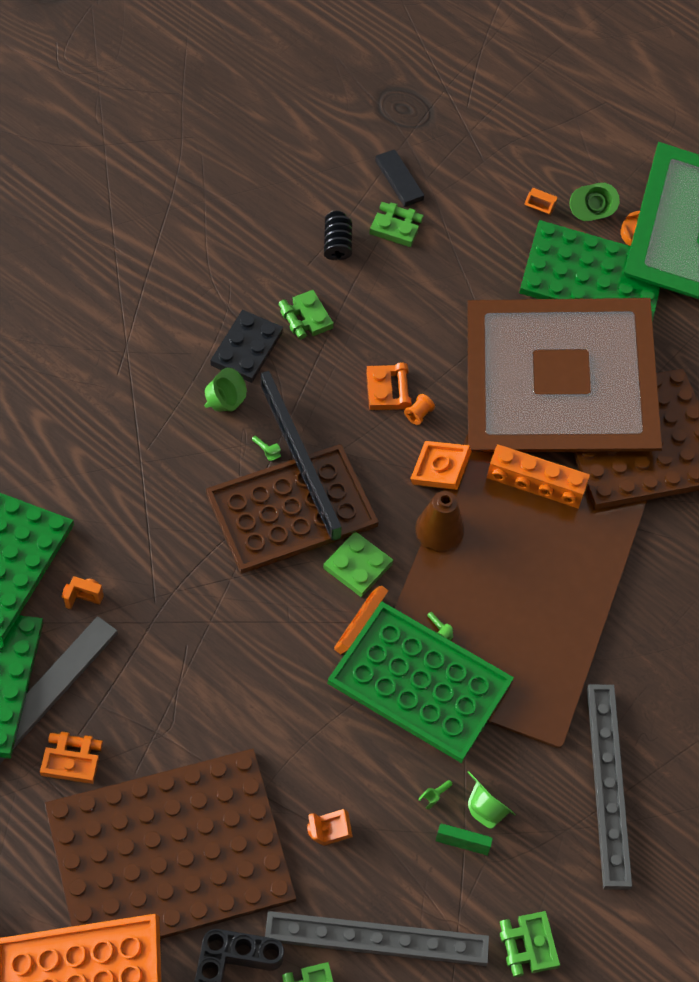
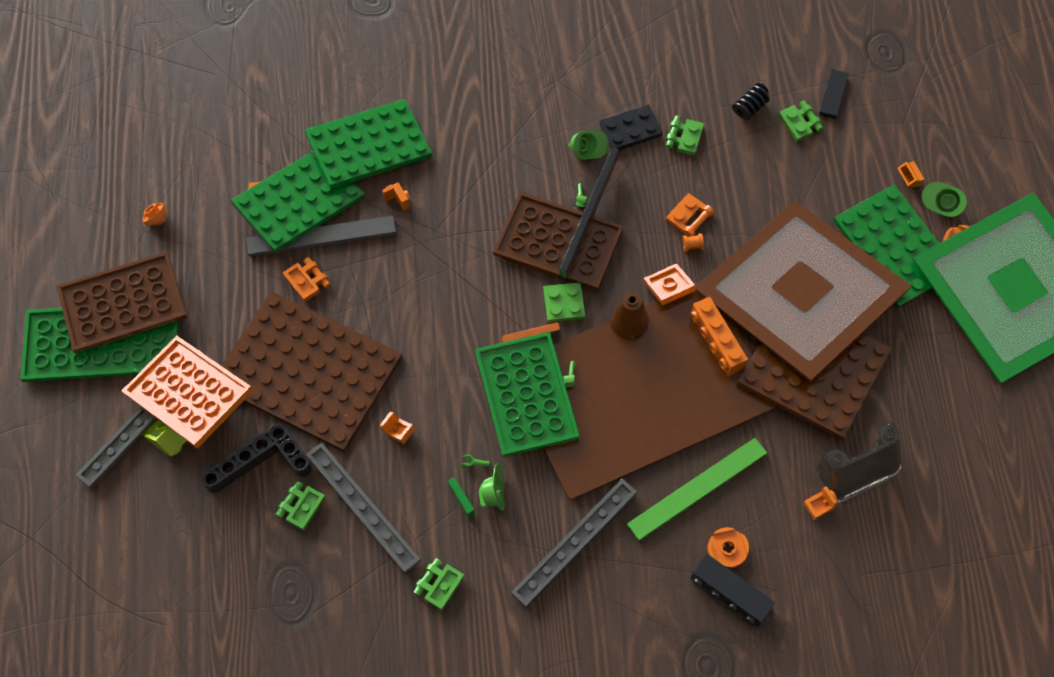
camera: 50 degrees right, 5 degrees up
(658, 639) = (696, 489): none -> bright green tile

